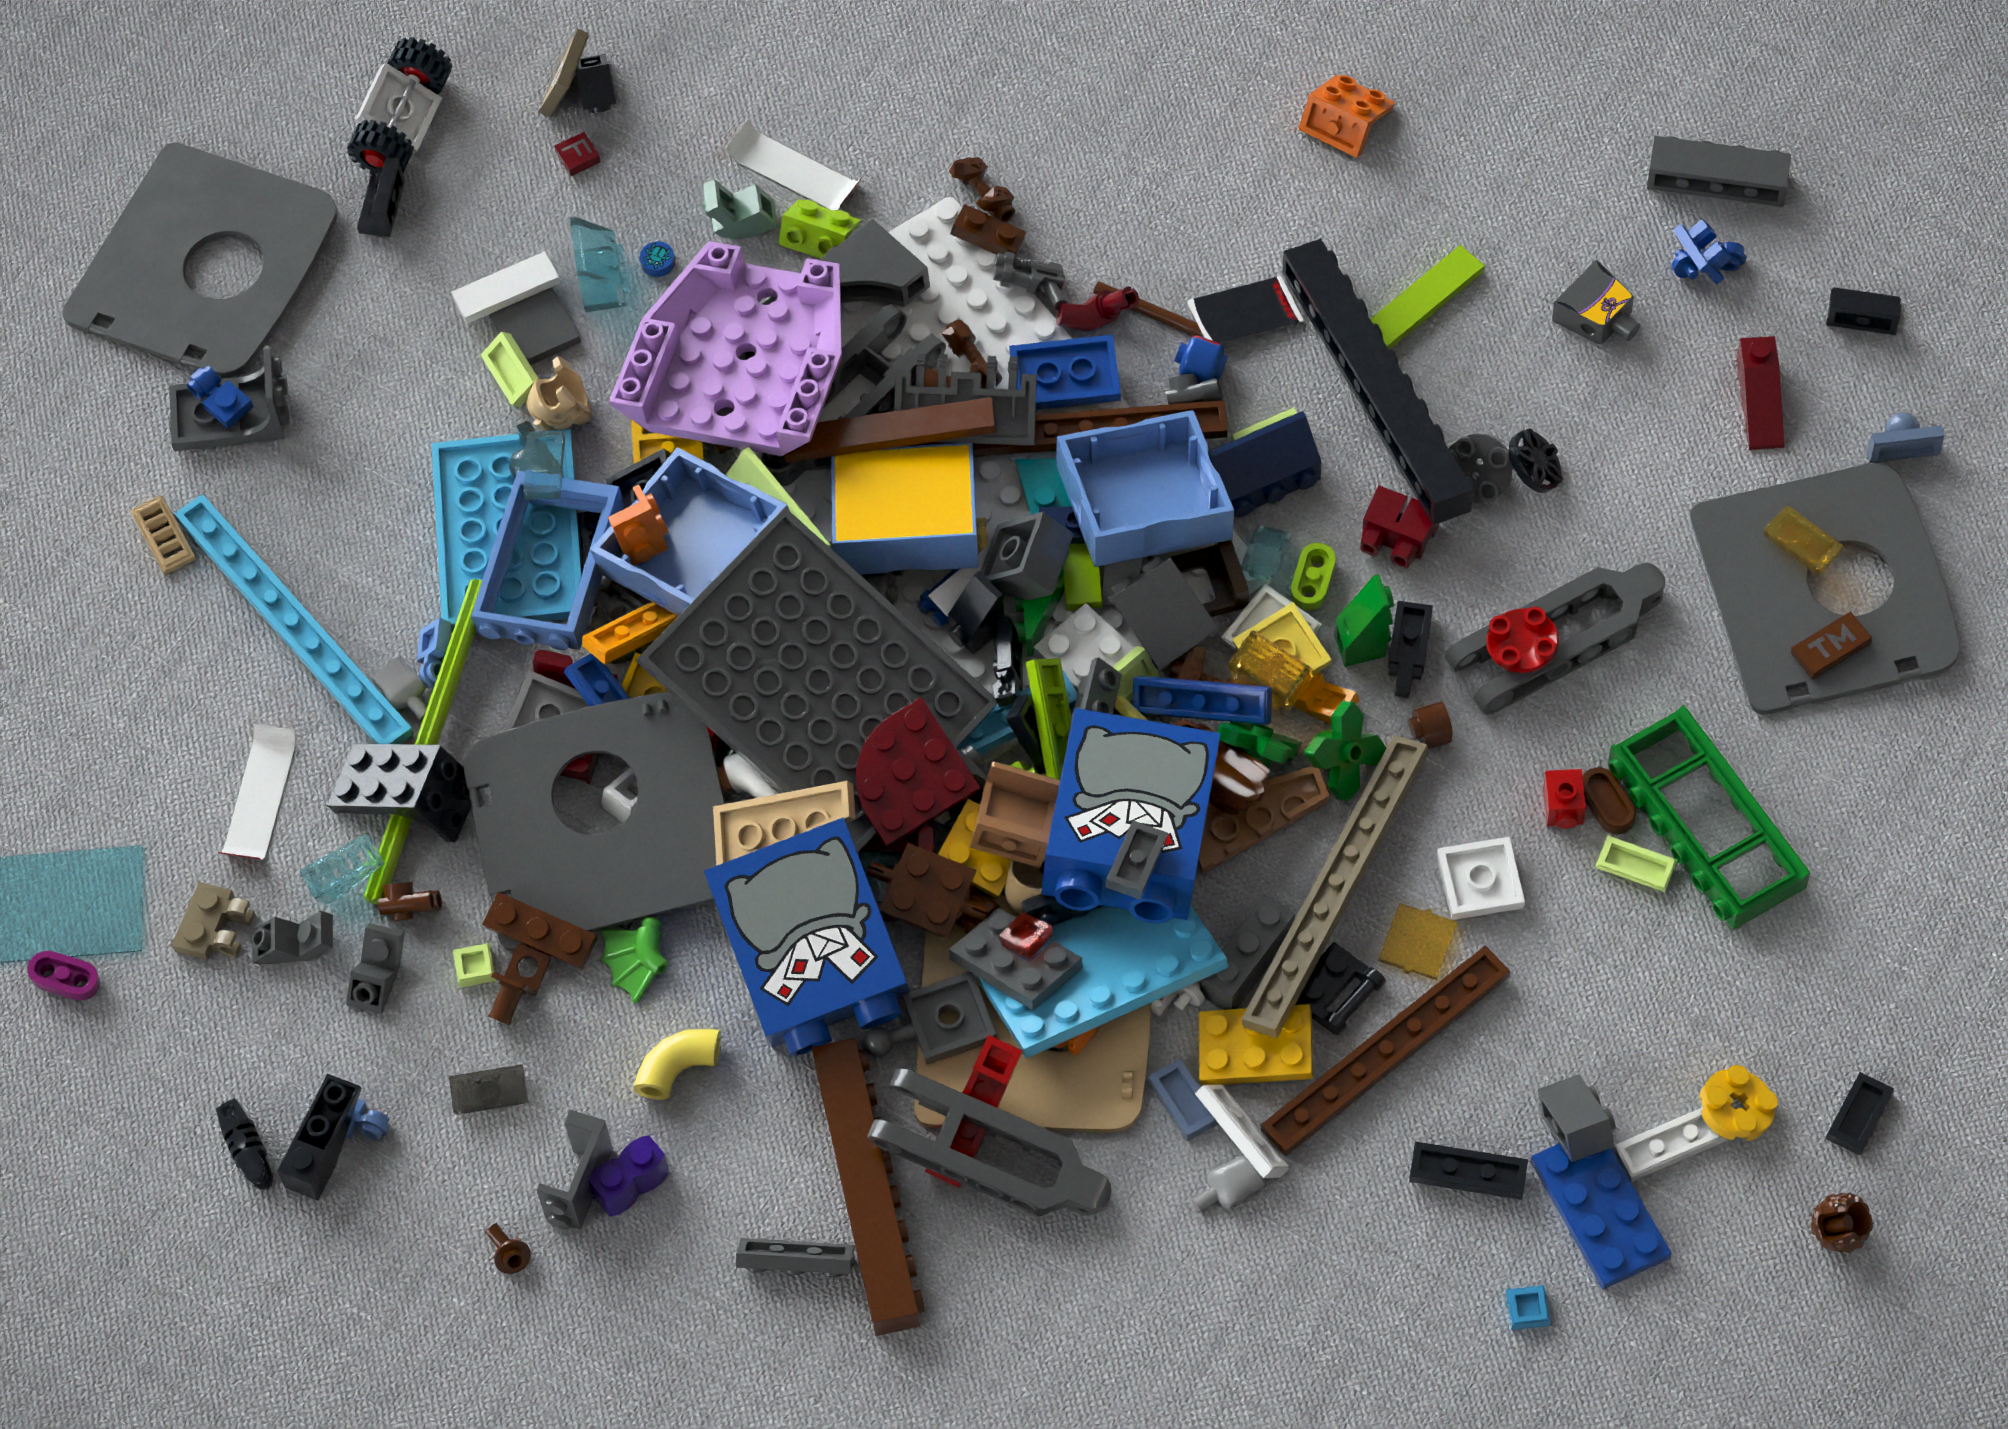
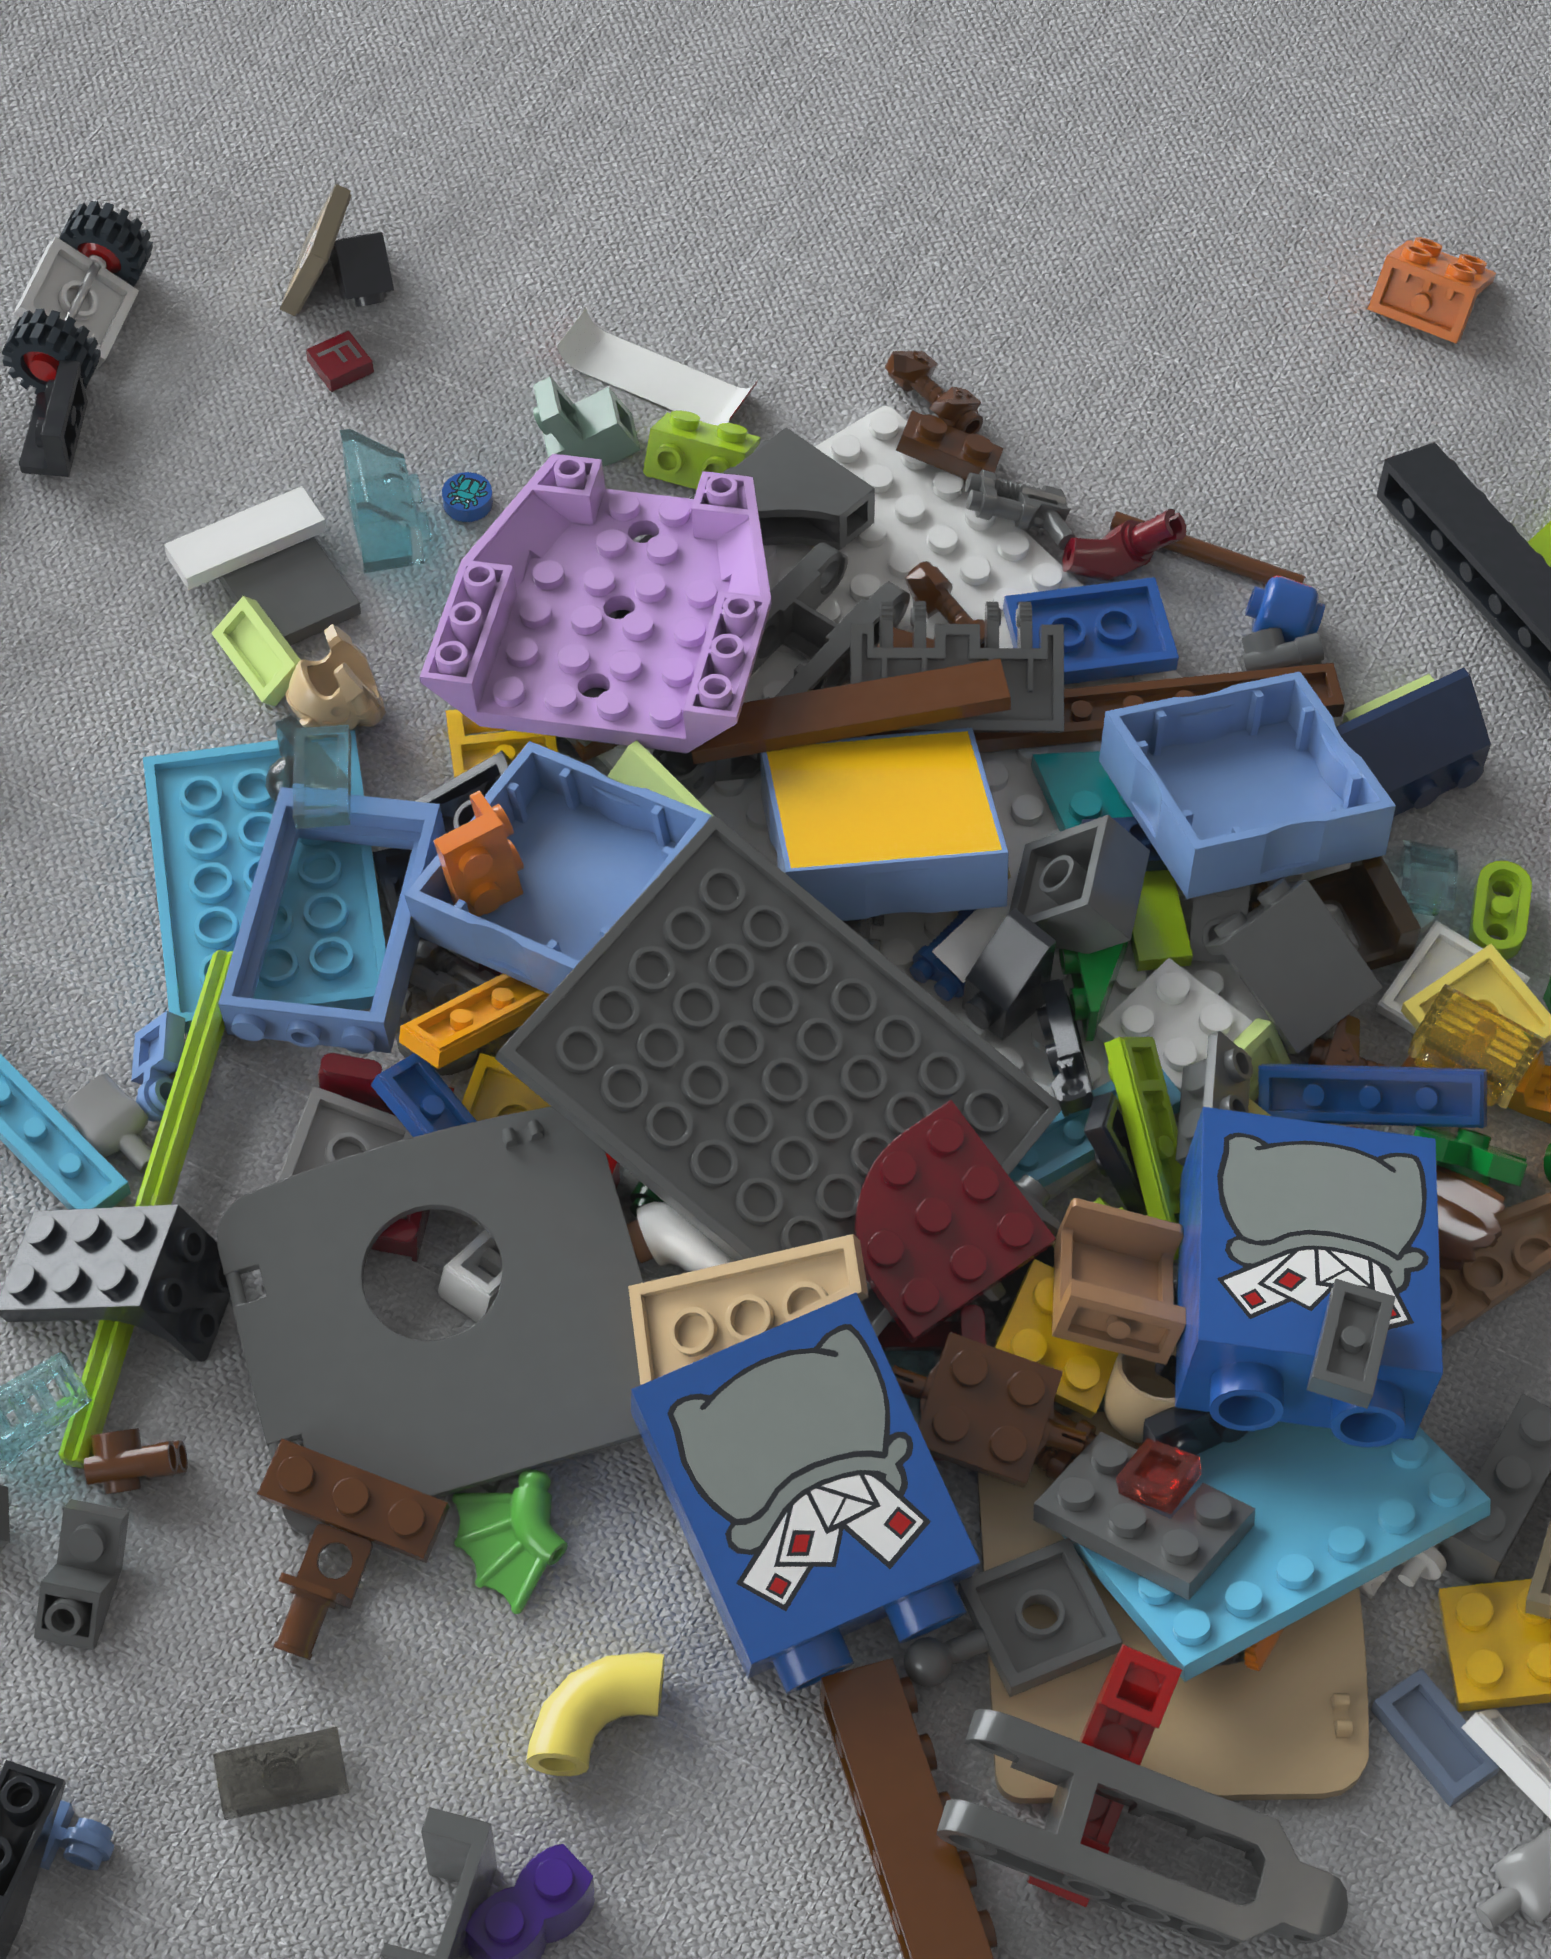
camera: 10 degrees left, 5 degrees down
(474, 965) = (246, 1562): yellowish green tile -> none
(1245, 310) = (1334, 545): black sticker -> none

